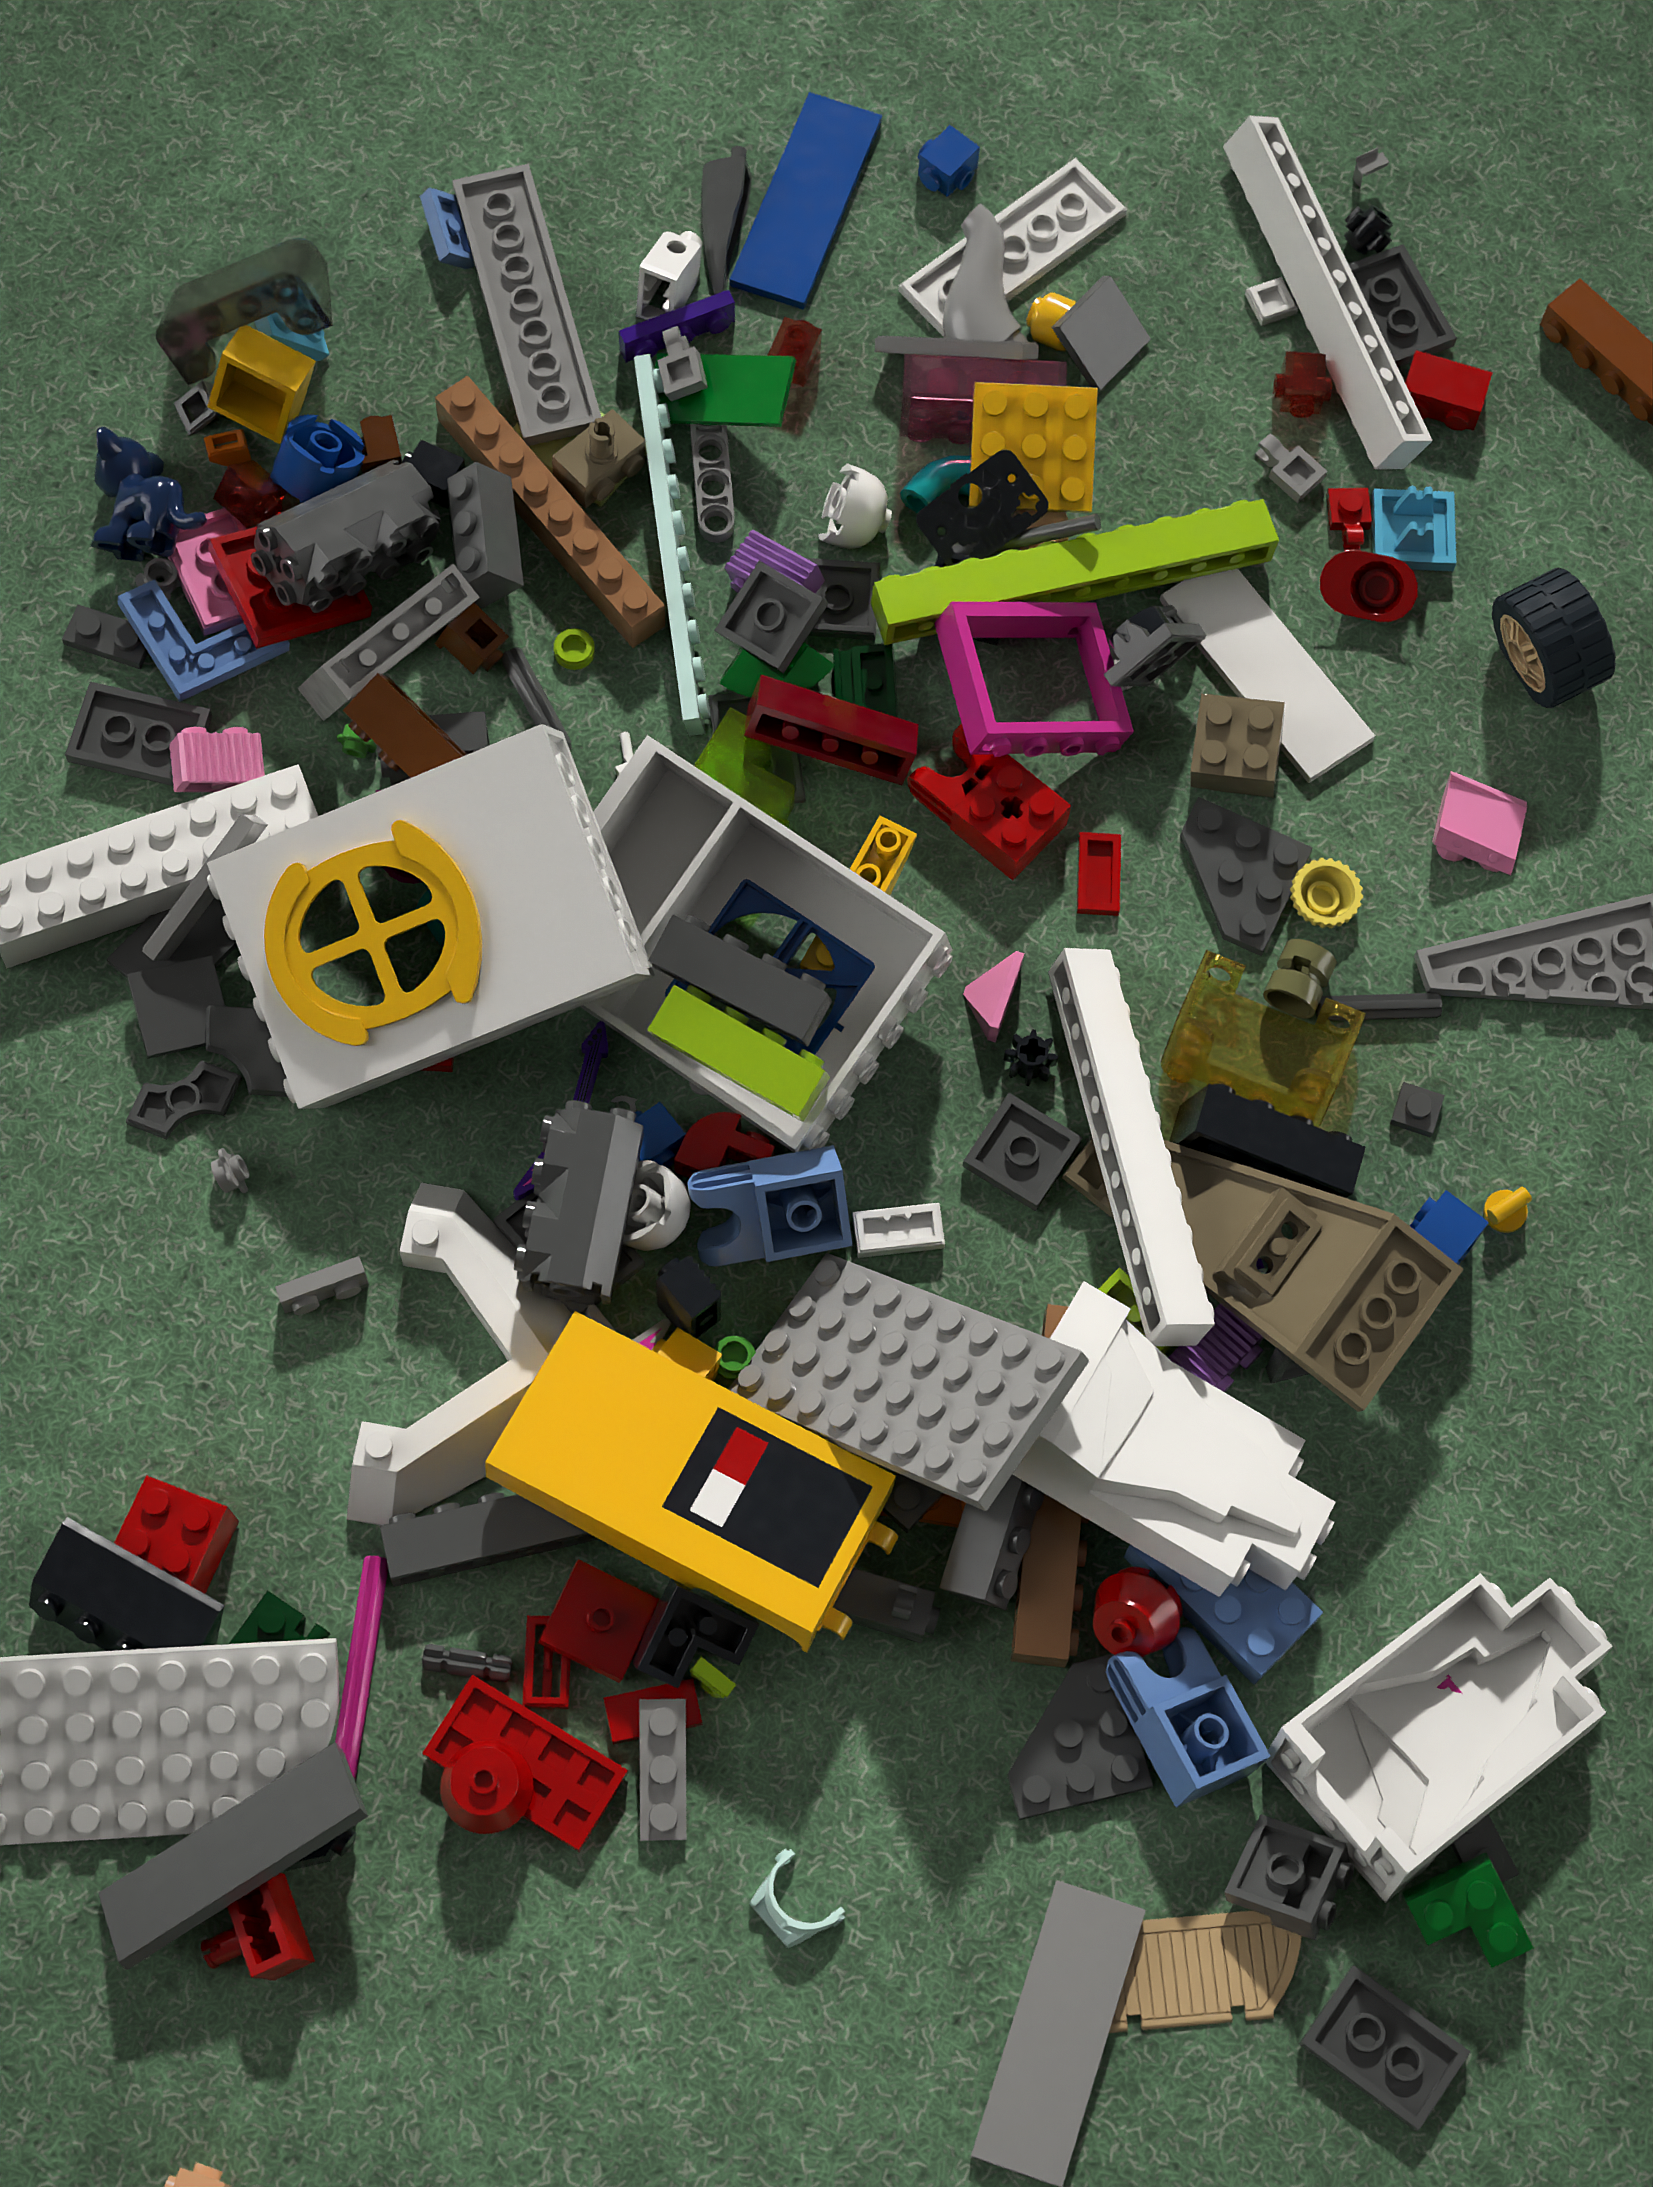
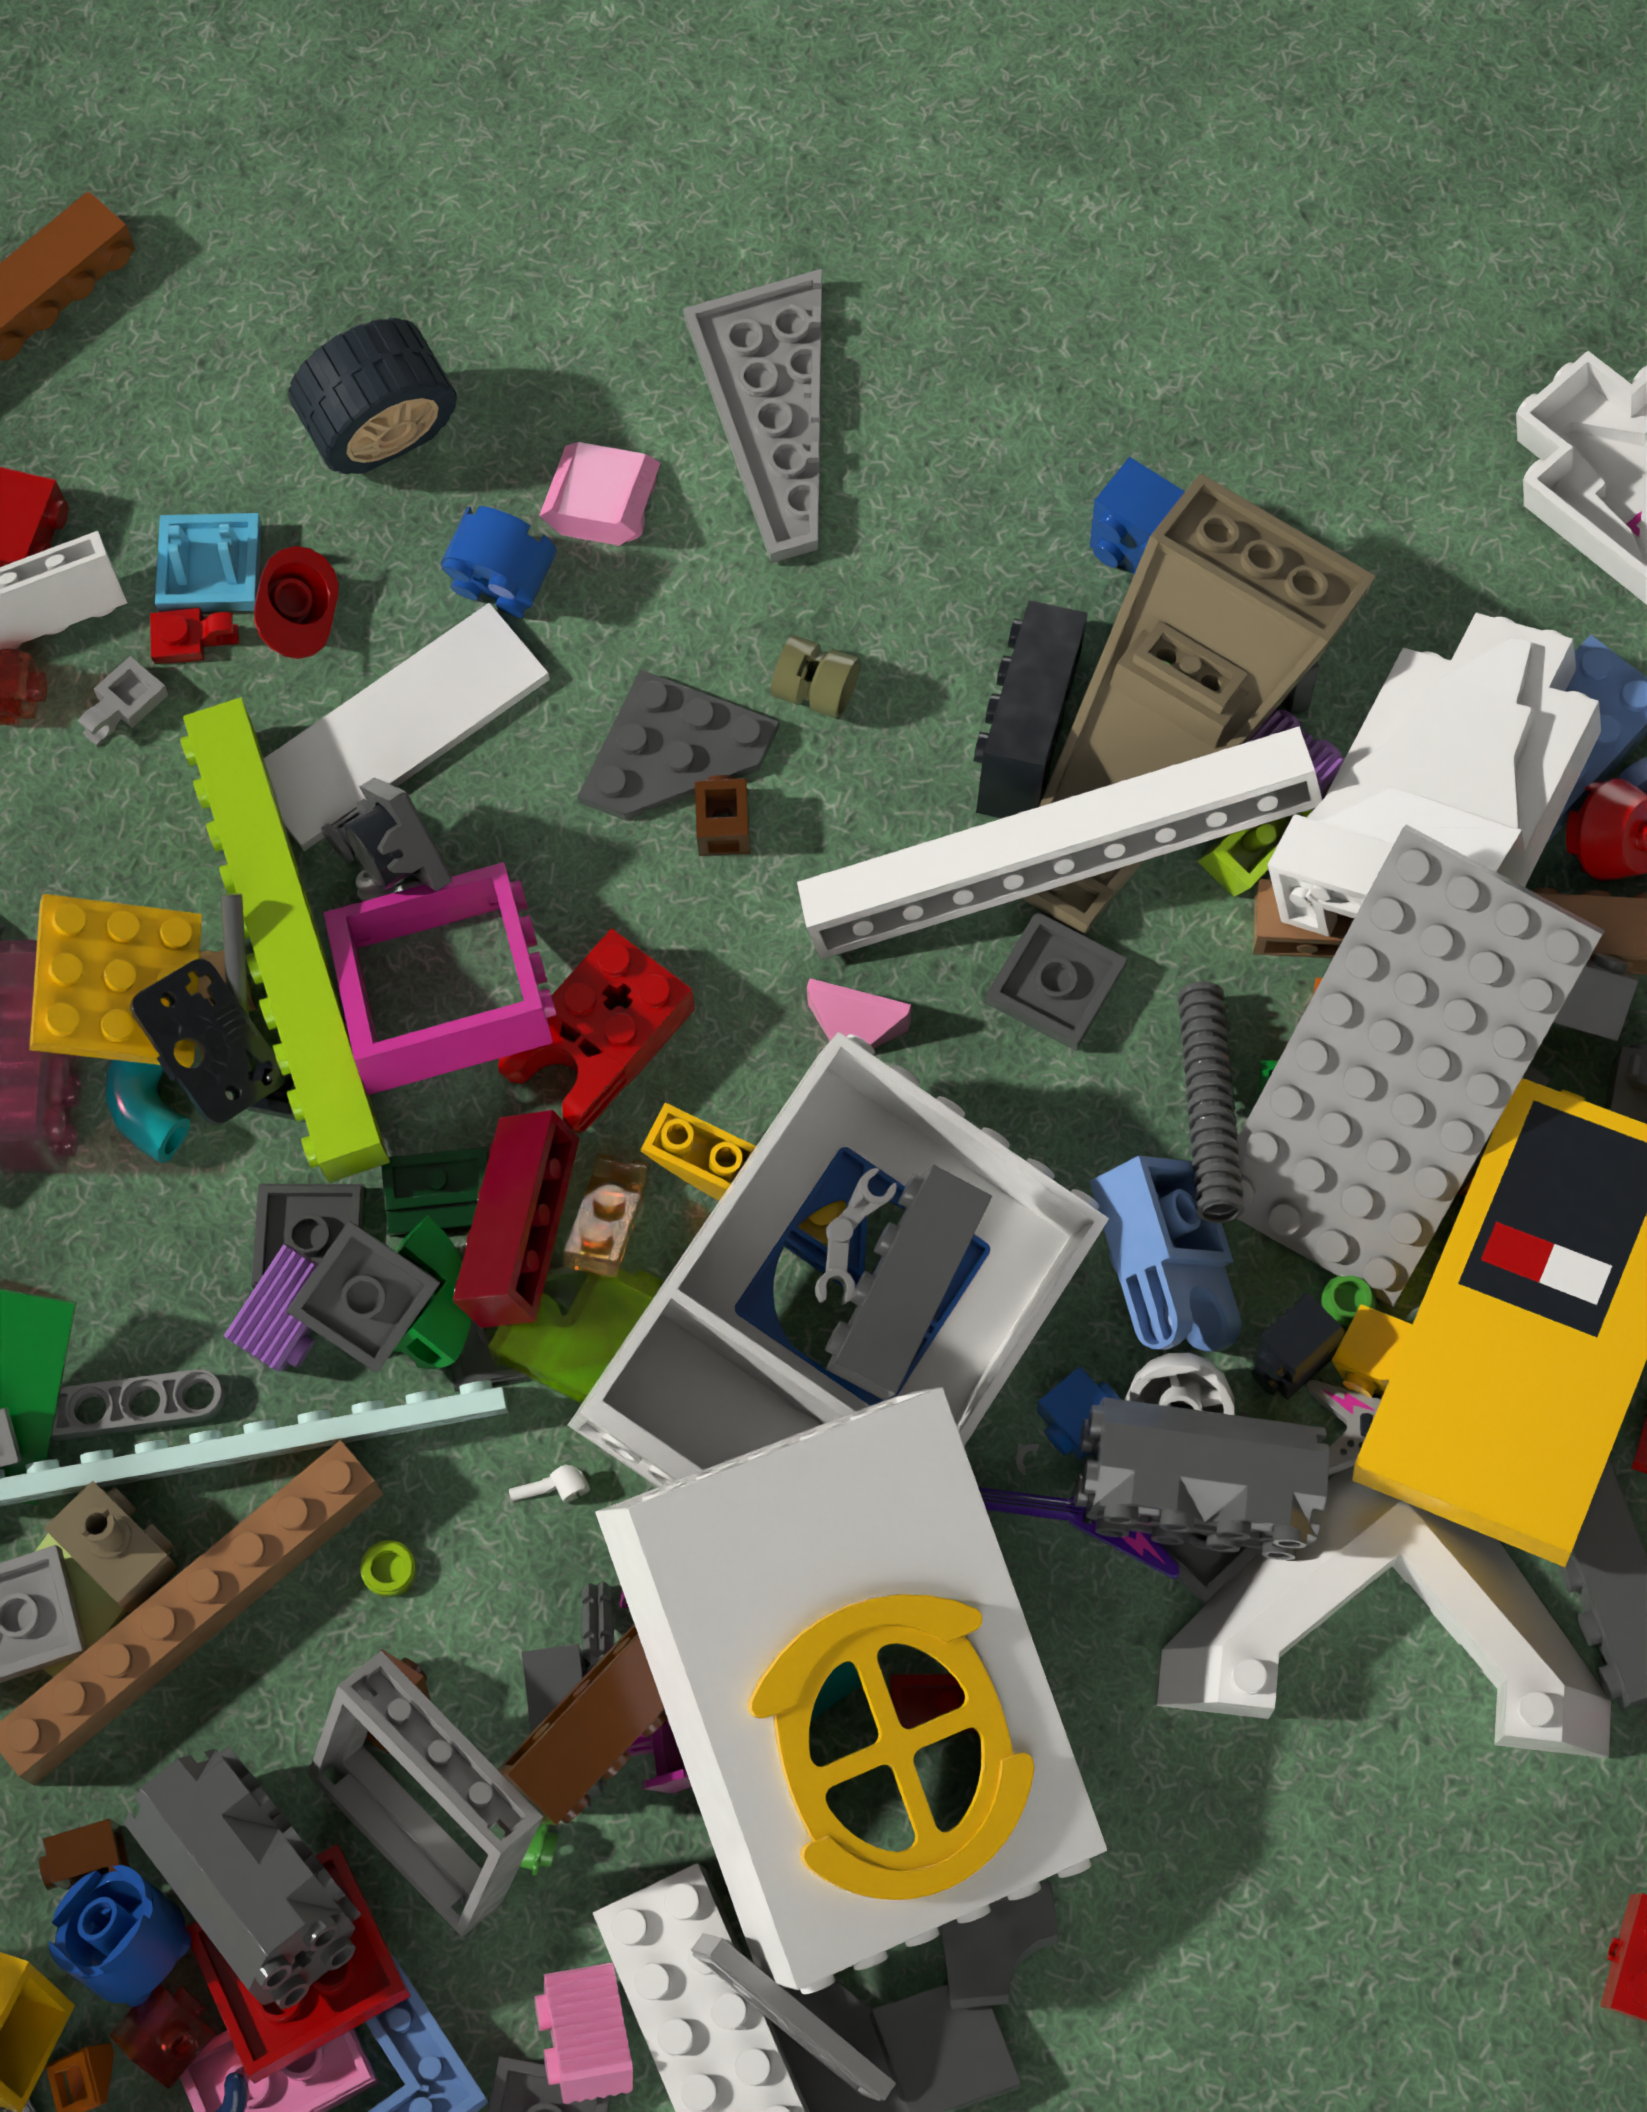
camera: 85 degrees left, 0 degrees up
(164, 1107) = (1084, 2059): dark grey tile -> none
(230, 1171) = (1171, 1954): light grey plate -> none
(338, 1280) = (1328, 1834): light grey plate -> none
(435, 467) = (121, 1773): black brick -> none
(485, 532) = (239, 1692): dark grey slope -> none
(531, 691) = (469, 1611): dark grey axle -> none
(715, 1140) = (1082, 1338): red brick -> none
(739, 1052) = (999, 1282): lime brick -> none
(785, 933) = (841, 1230): none -> light grey piece
(831, 797) = (606, 1216): none -> clear orange plate
(858, 506) = (178, 1208): white cylinder -> none
(898, 1230) = (1163, 1110): white plate -> none
(903, 1252) = (1210, 1103): none -> dark grey piece
(1028, 1069) = (936, 988): black gear -> none
(1099, 873) = (683, 908): red tile -> none
(1176, 888) = (722, 834): none -> reddish brown brick
(1237, 745) = (515, 746): dark tan brick -> none
(1257, 1047) = (908, 715): clear yellow windscreen -> none
(1326, 893) = (702, 650): light yellow hat -> none
(1390, 1005) = (838, 592): dark grey axle -> none
(1406, 735) = (497, 559): none -> blue brick
(1417, 1109) = (963, 558): dark grey plate -> none
(1507, 1209) = (1078, 465): yellow plate -> none

